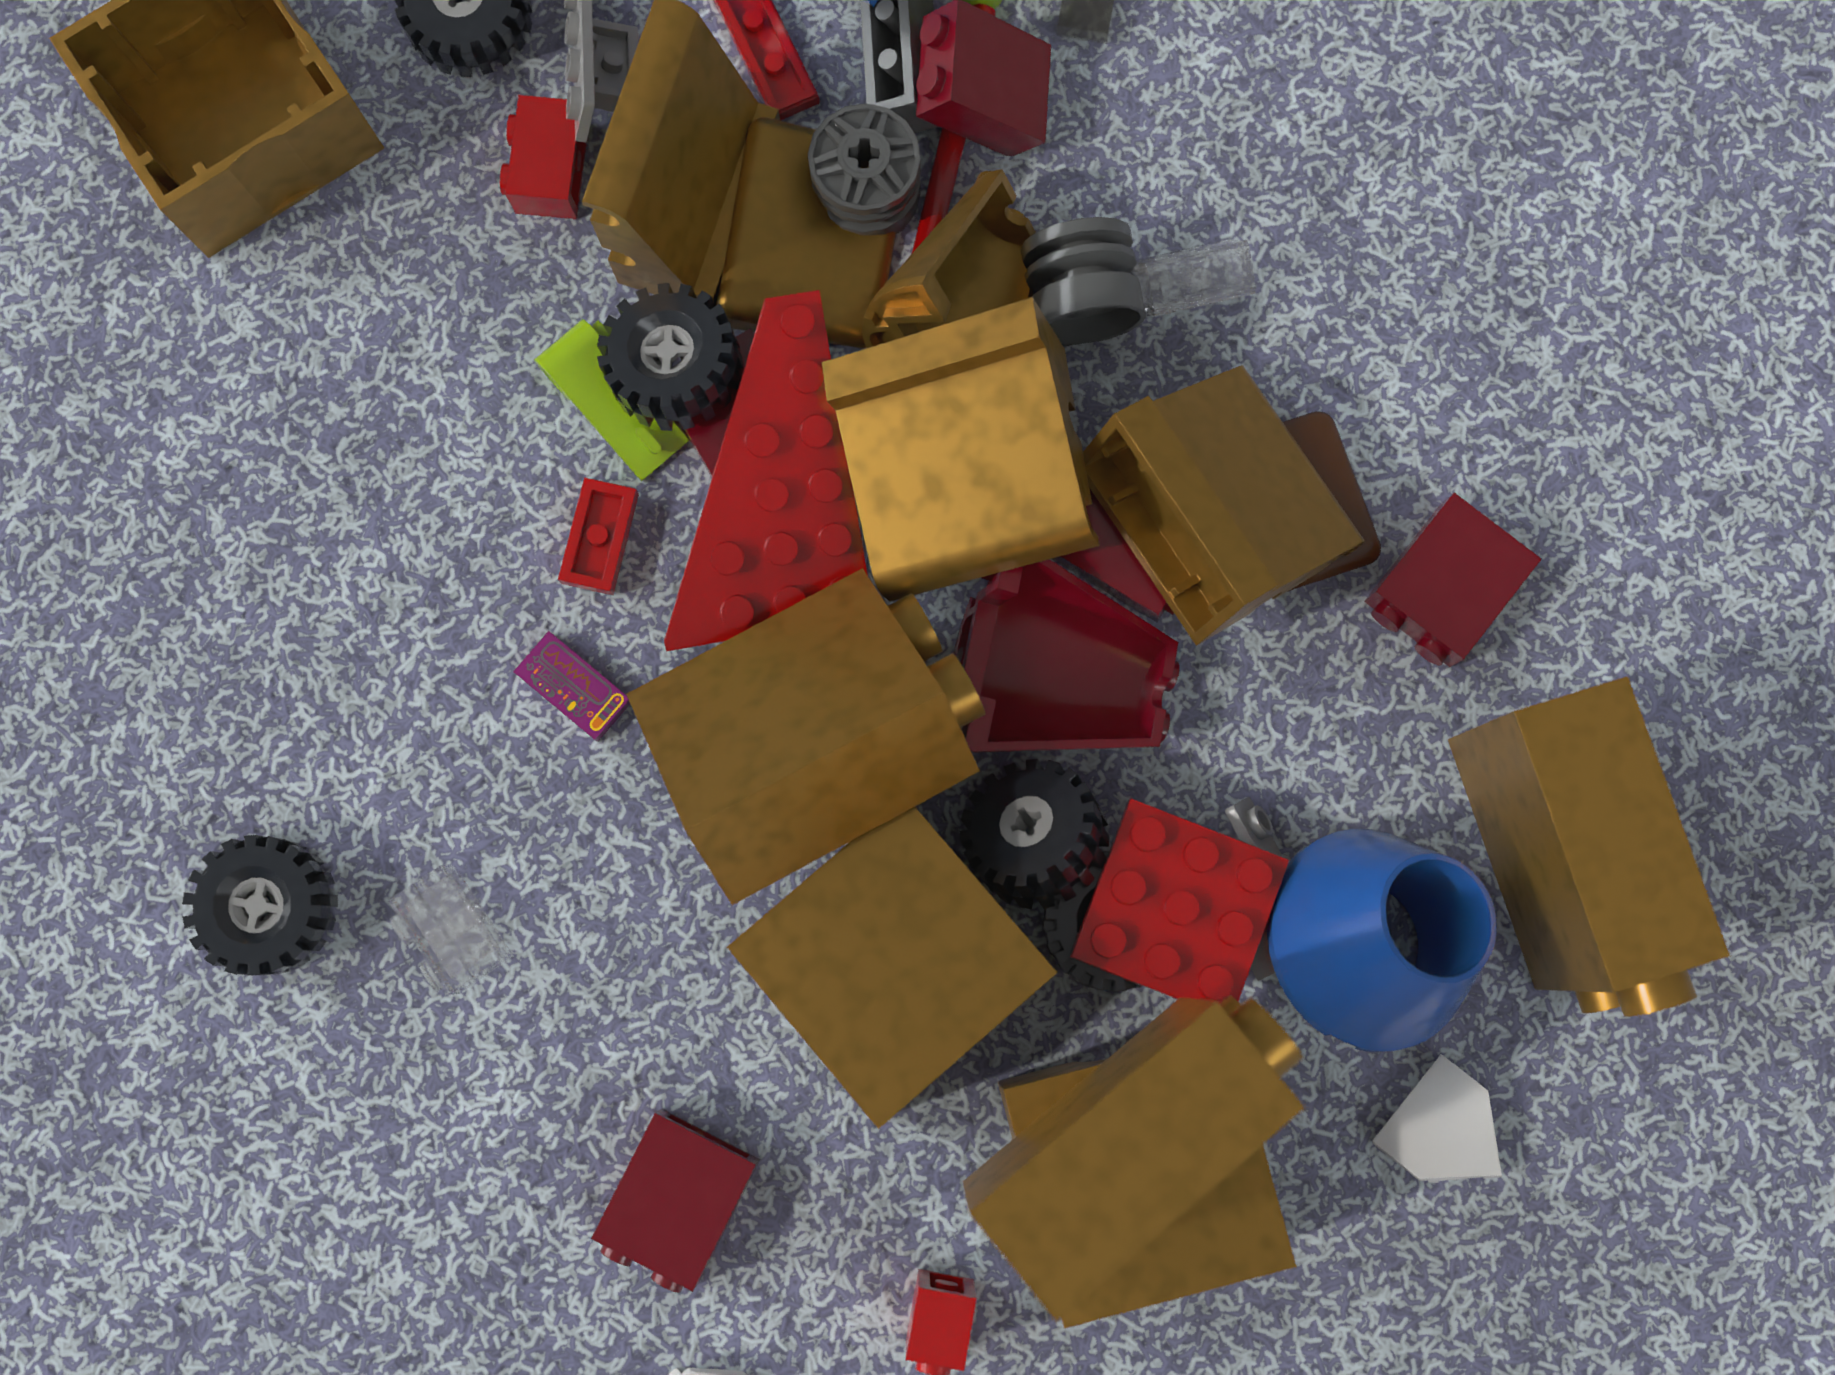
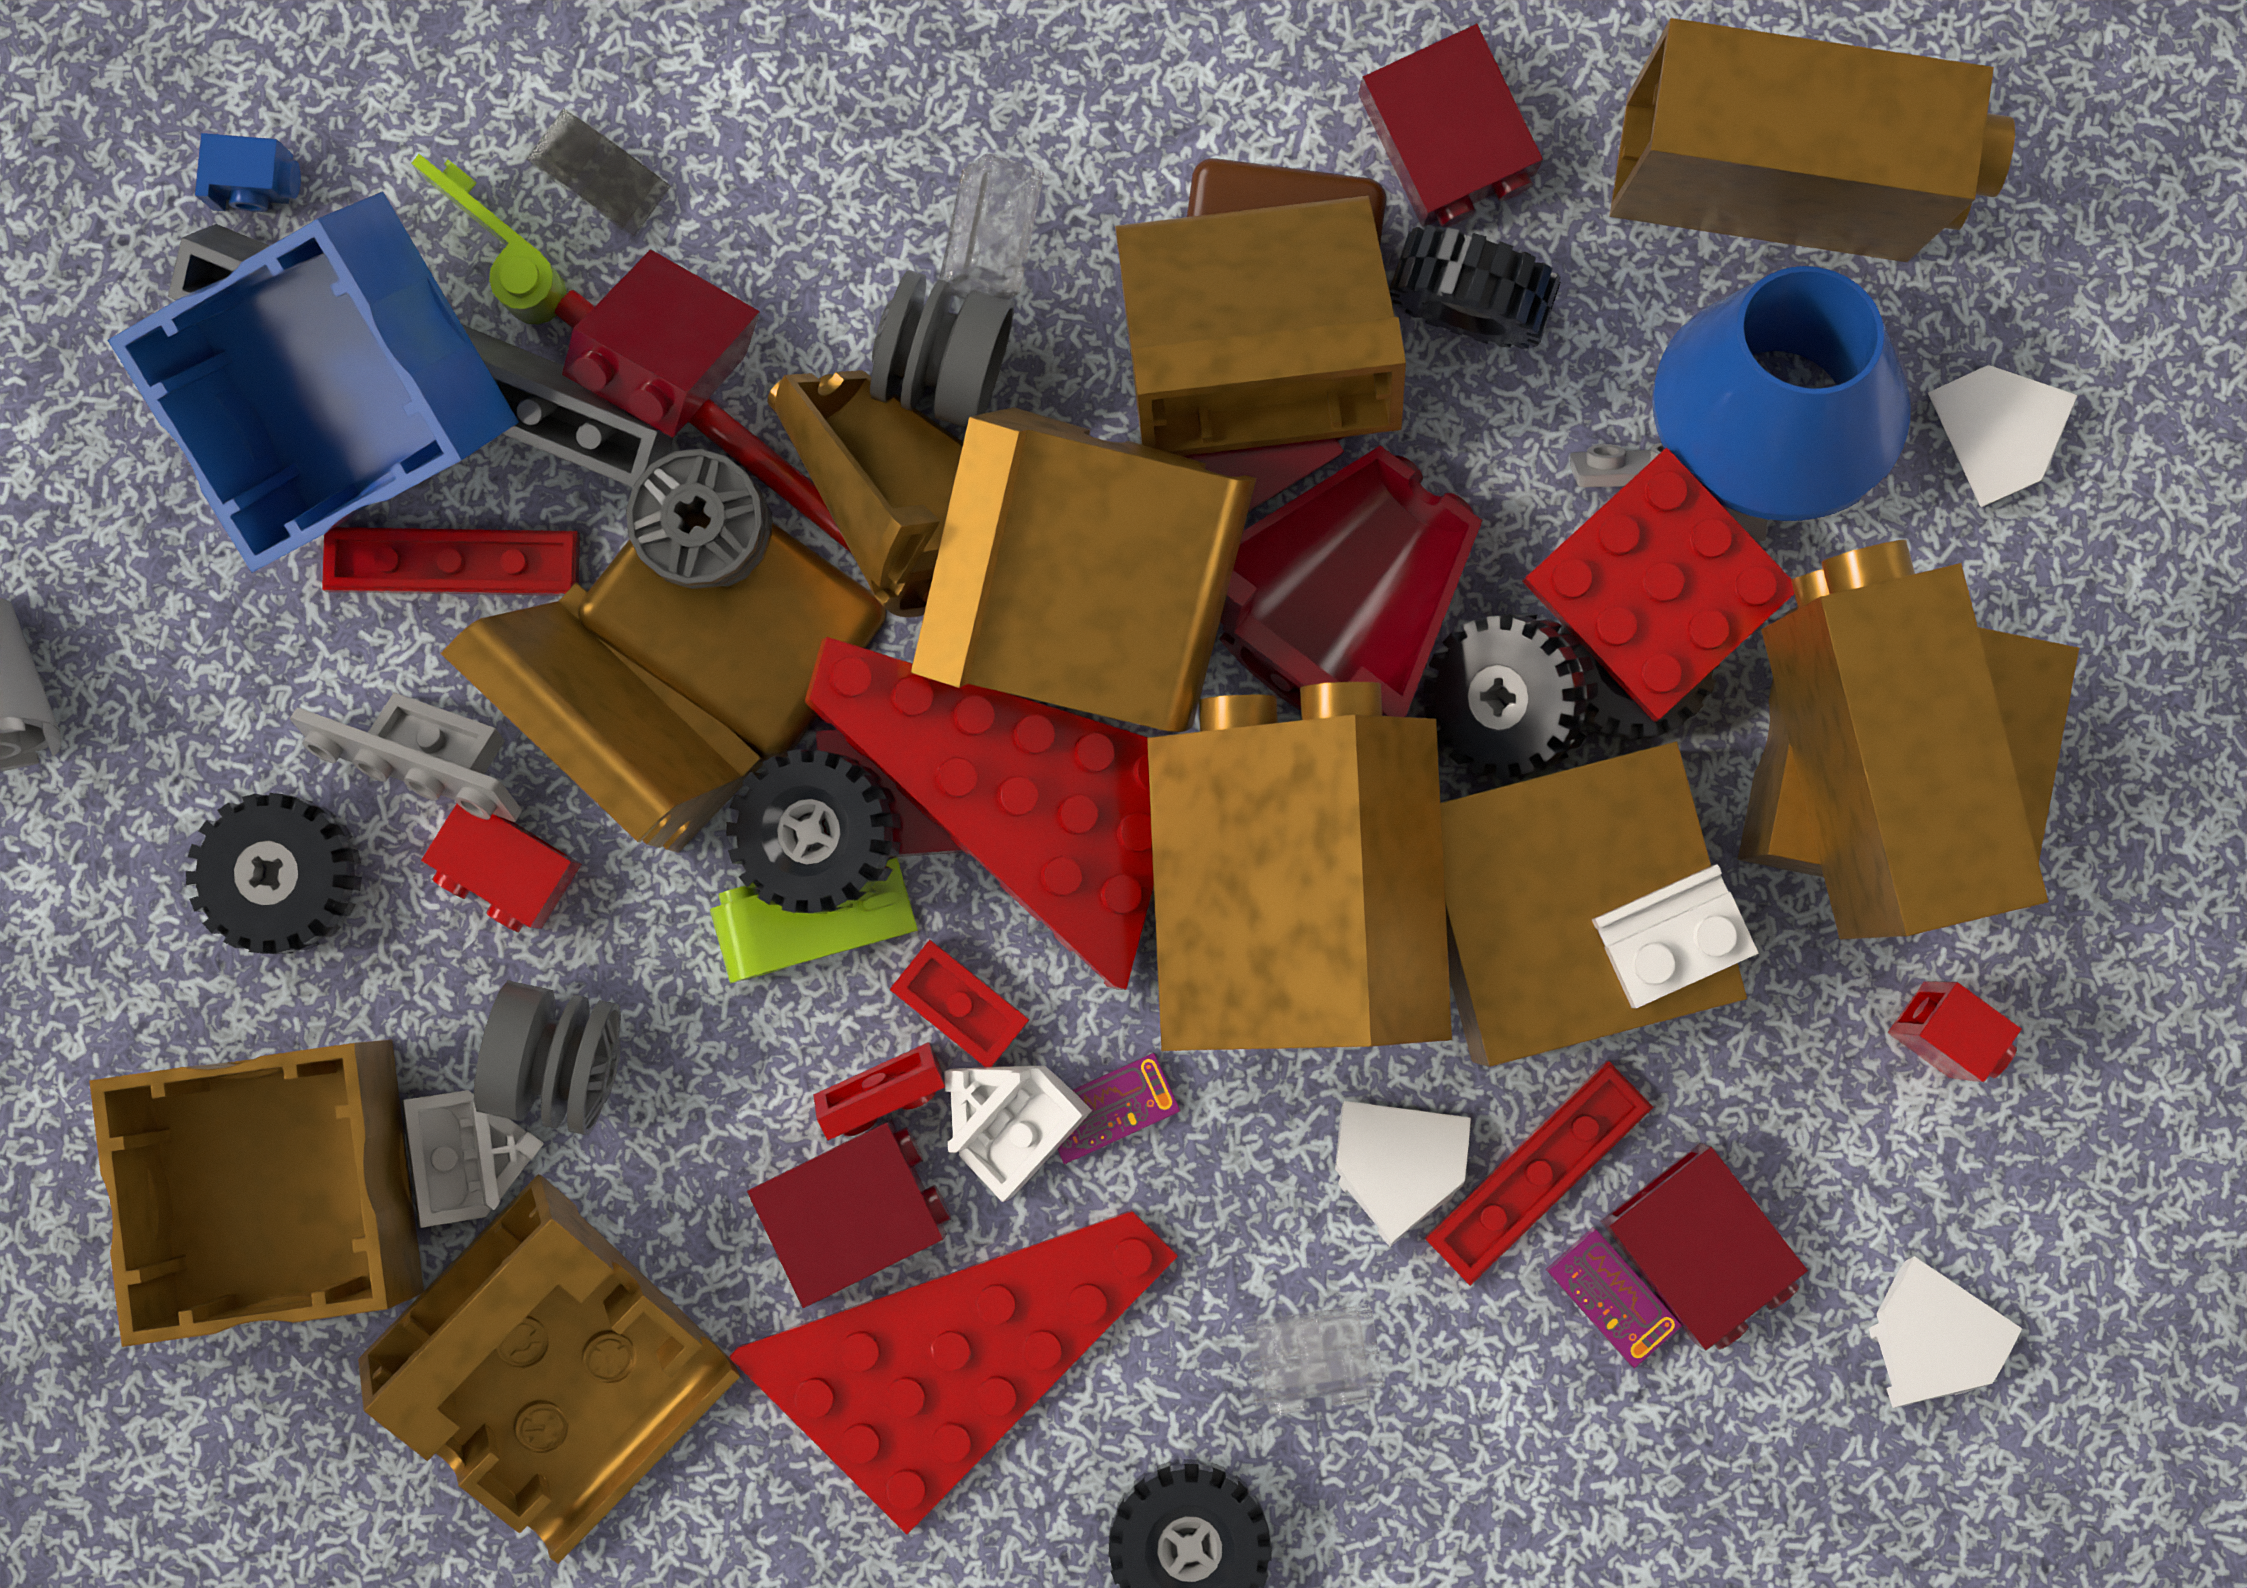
camera: 60 degrees left, 5 degrees up
(181, 363) = (543, 1371): none -> pearl gold panel
(315, 656) = (941, 1371): none -> red wing
(319, 234) = (461, 1157): none -> white slope
(402, 528) = (850, 1212): none -> dark red brick
(413, 250) = (533, 1054): none -> dark grey wheel
(492, 498) = (895, 1084): none -> red plate
(525, 614) = (1010, 1121): none -> white slope
(604, 1147) = (1613, 1297): none -> magenta tile
(633, 928) = (1400, 1162): none -> white slope
(676, 1041) = (1538, 1172): none -> red tile
(899, 1045) = (1675, 936): none -> white plate
(1337, 652) = (1474, 287): none -> black wheel

